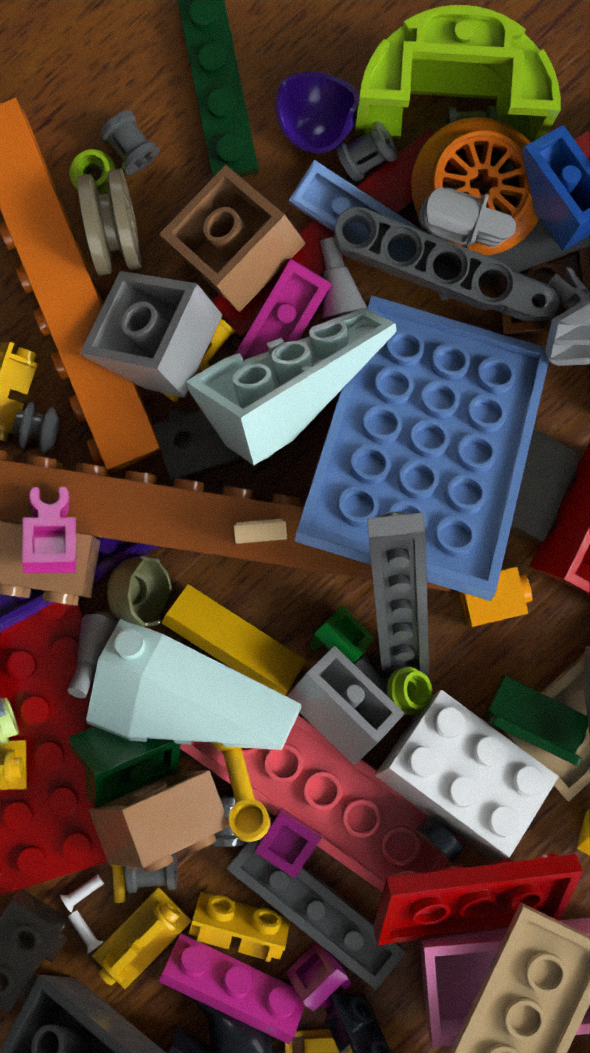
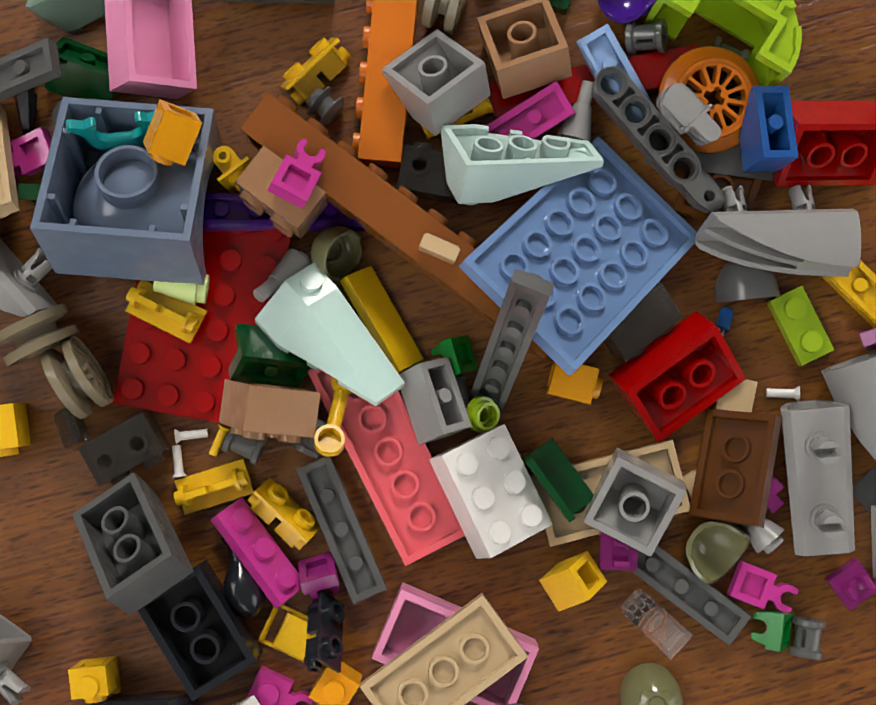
camera: 25 degrees right, 0 degrees up
(288, 843) = (346, 472): magenta tile -> none
(440, 838) = (450, 523): black tile -> none
(473, 897) = (450, 573): red plate -> none

